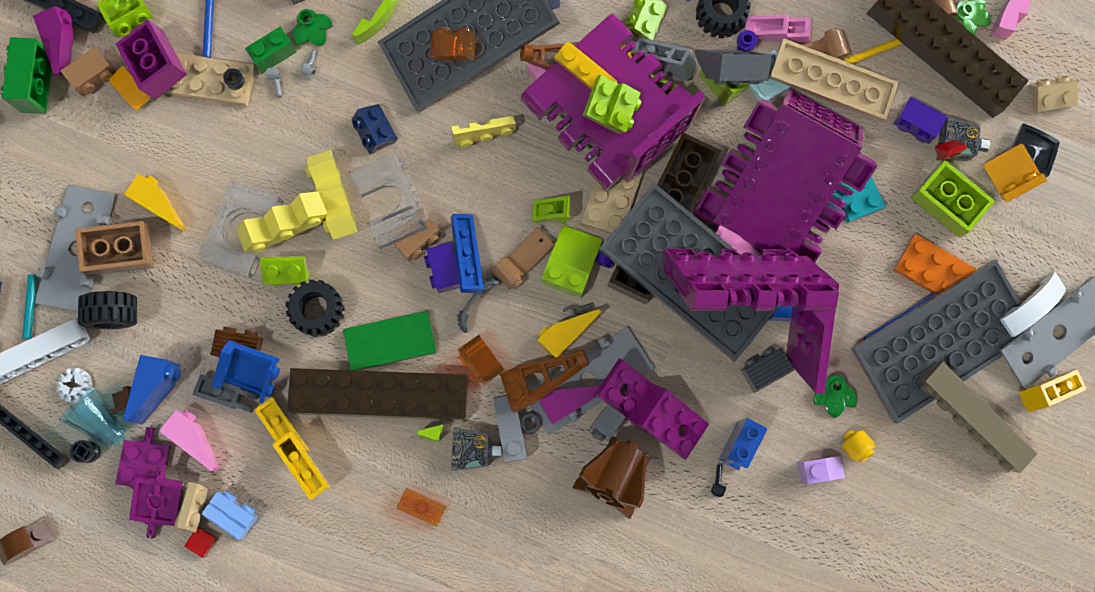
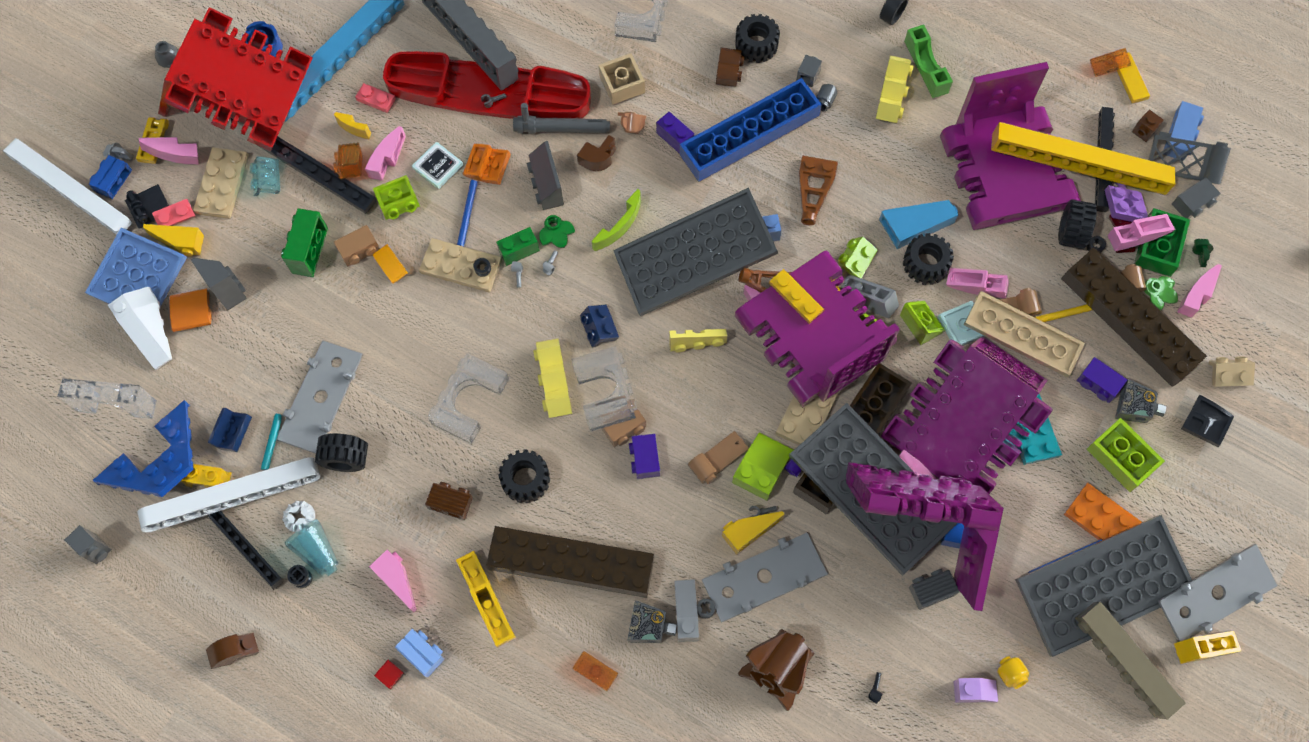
camera: 15 degrees right, 10 degrees down
(57, 37) = (335, 212): magenta slope -> none
(114, 248) = (355, 400): medium nougat brick -> none
(120, 401) = (342, 537): reddish brown panel -> none
(141, 459) = (348, 596): magenta plate -> none
(150, 386) = (369, 525): blue slope -> none
(151, 59) = (413, 241): magenta brick -> none
(151, 197) = (392, 359): yellow slope -> none
(155, 500) = (356, 629): magenta plate -> none
(191, 507) = (386, 640): tan bracket -> none
(227, 395) = (430, 541): dark grey hinge -> none
(247, 370) = (455, 522): blue panel -> none
(281, 222) = (506, 396): light yellow brick -> none
(284, 270) = (501, 438): lime bracket -> none
(389, 341) = (587, 515): green tile -> none
(432, 433) = (614, 604): lime slope -> none
(453, 45) = (680, 260): clear orange brick -> none
(463, 316) = (656, 502): dark grey piece -> none
(466, 253) = (668, 445): blue plate -> none
(480, 360) = (668, 544): clear orange brick -> none
(515, 379) = (697, 567): dark orange plate -> none
(551, 209) = (750, 416): lime slope -> none
(565, 401) = (740, 591): magenta slope -> none
(606, 423) = (776, 616): dark grey brick -> none
(612, 105) = (816, 329): lime plate -> none
(652, 409) = (821, 609): magenta bracket -> none
(734, 66) = (932, 309): dark grey slope -> none
(742, 443) = (902, 653): blue panel -> none
(746, 40) = (946, 290): dark purple hose -> none
(836, 399) = (996, 626): green plate -> none
(949, 149) = (1126, 409): red slope -> none
(1014, 173) = (1186, 438): light orange bracket -> none
(1035, 306) = (1195, 564): white slope -> none

